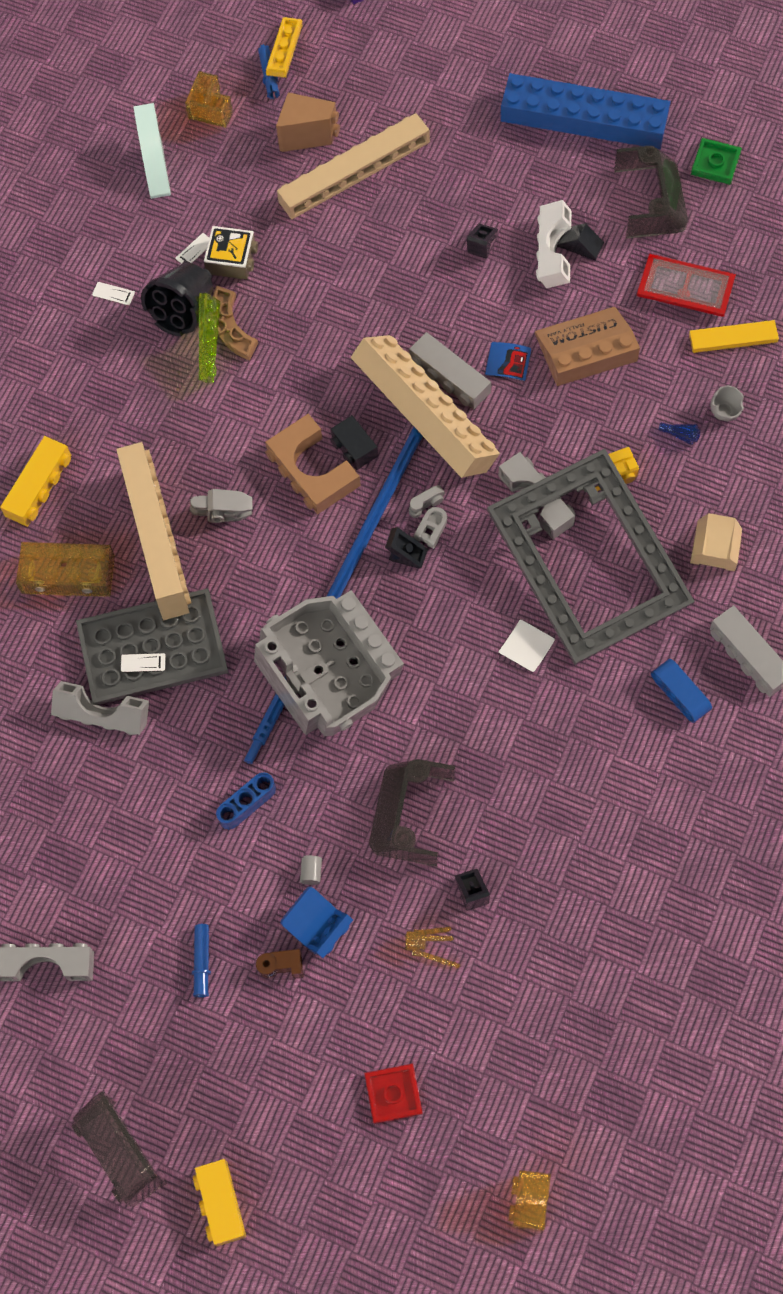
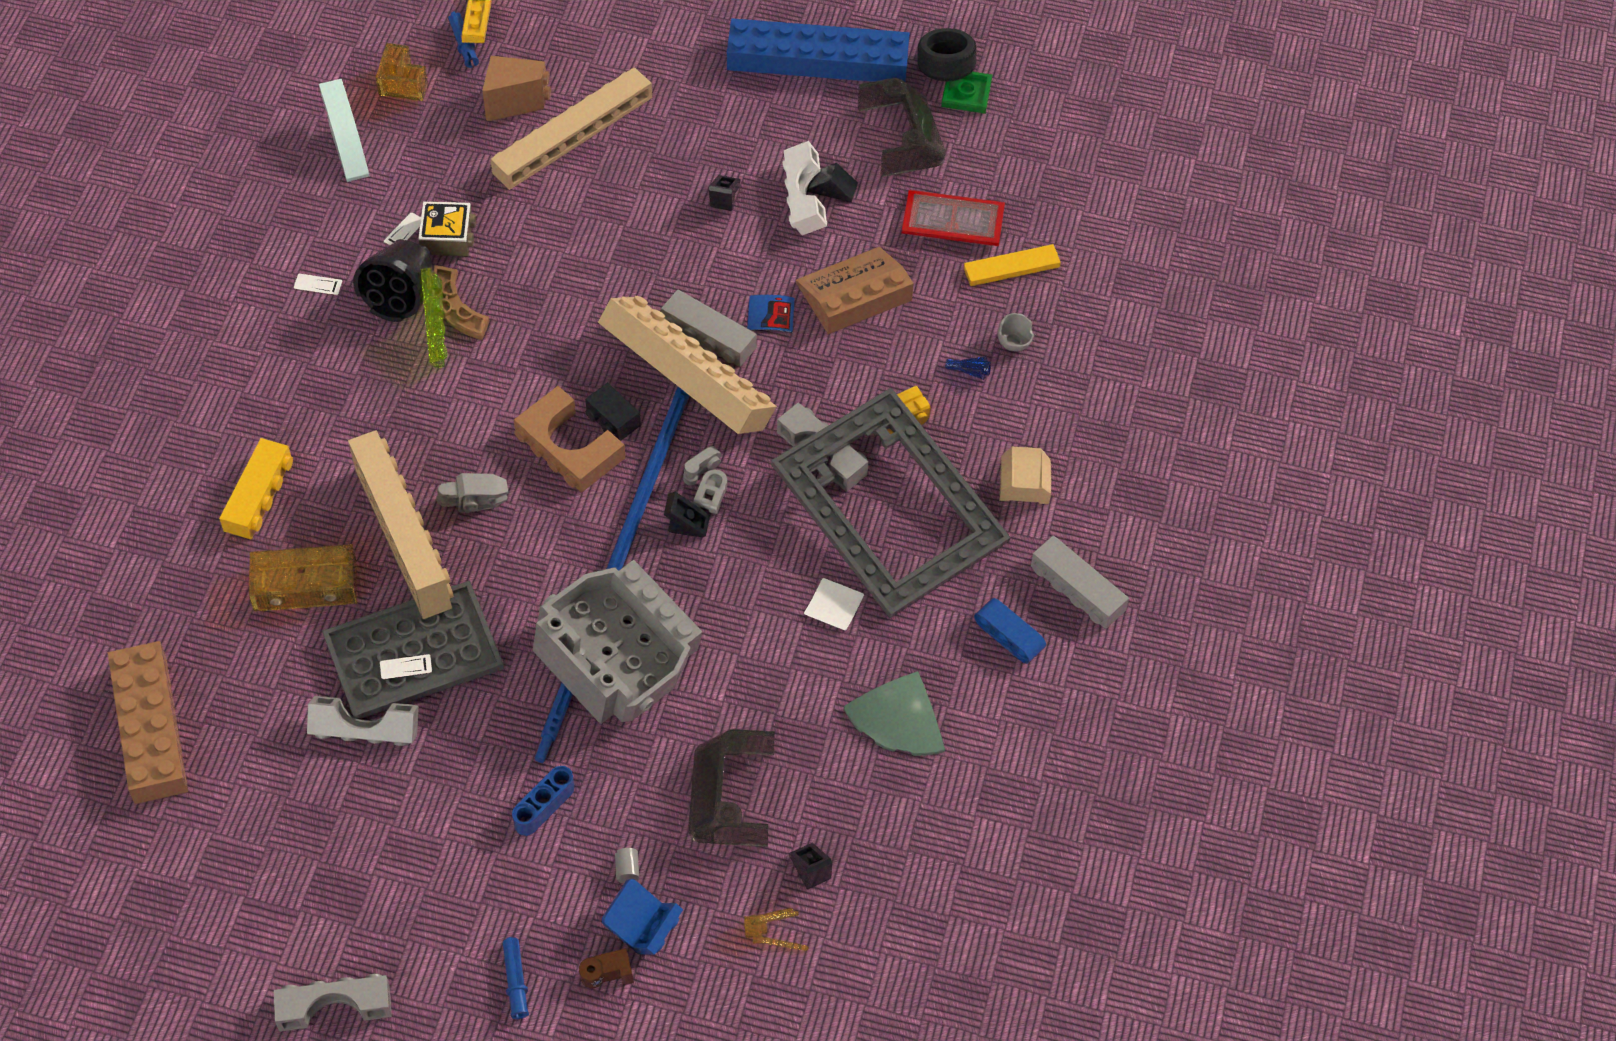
camera: 15 degrees left, 10 degrees down
(569, 761) = (898, 717): none -> sand green brick
(697, 137) = (946, 54): none -> black tyre

